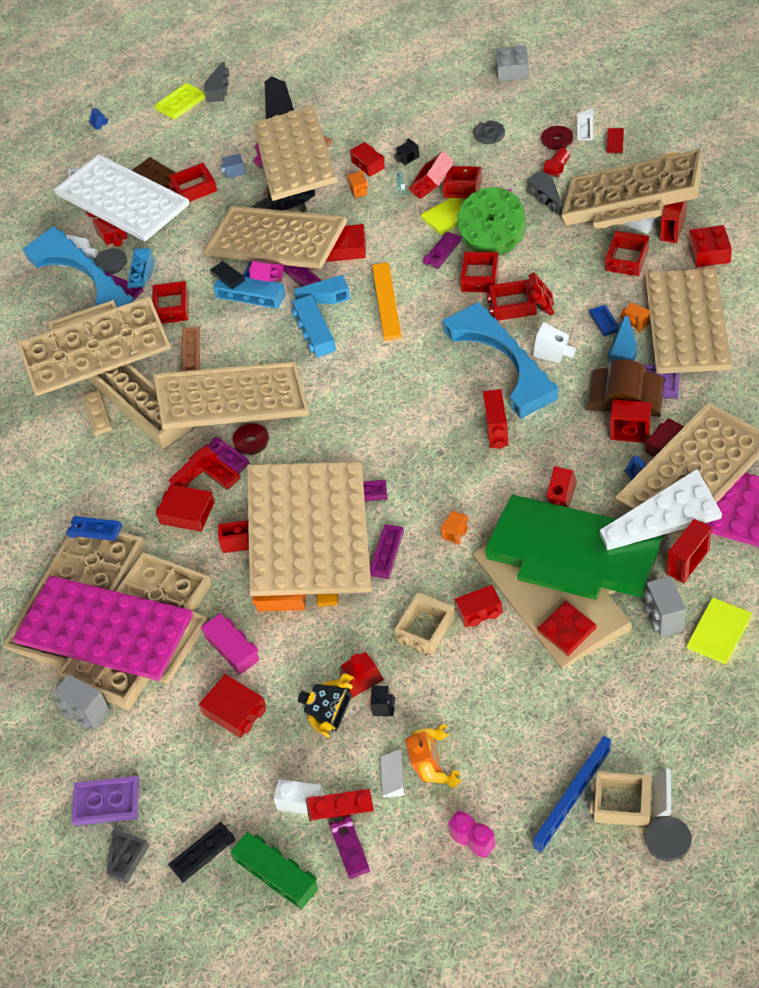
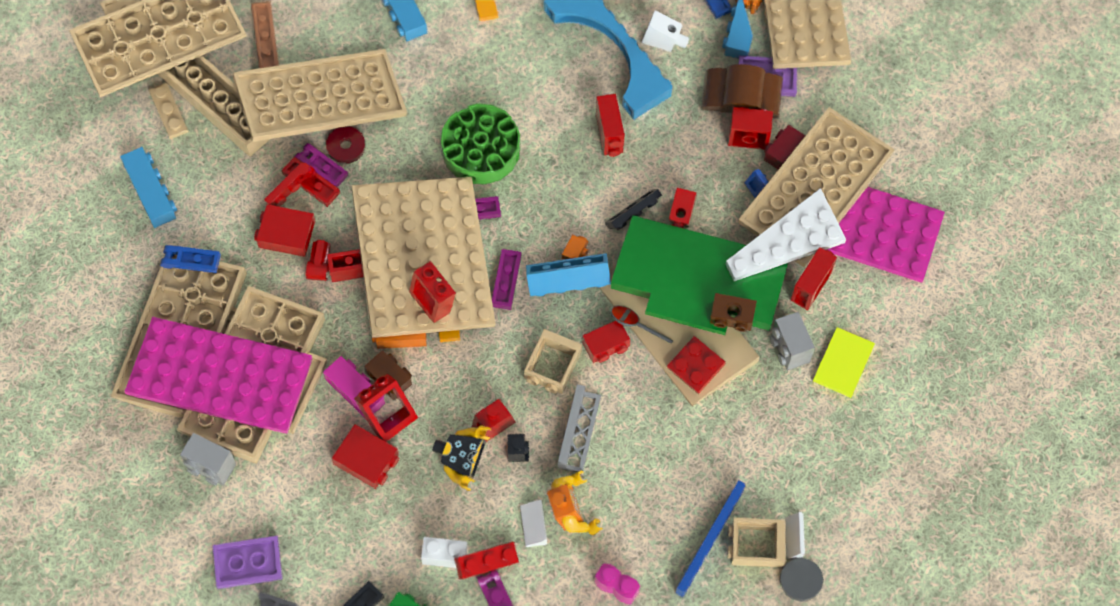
camera: 15 degrees left, 15 degrees up
(68, 473) = (148, 187): none -> dark azure brick
(209, 539) = (318, 264): none -> red piece
(264, 632) = (387, 364): none -> reddish brown brick
(268, 674) = (394, 423): none -> red window
(308, 552) = (432, 296): none -> red window
(373, 435) = (480, 143): none -> bright green brick
(437, 684) = (571, 428): none -> light grey fence
(445, 545) = (568, 275): none -> dark azure brick
(502, 584) = (629, 318): none -> piece
(529, 483) = (647, 200): none -> black plate
(595, 567) = (743, 307): none -> reddish brown brick

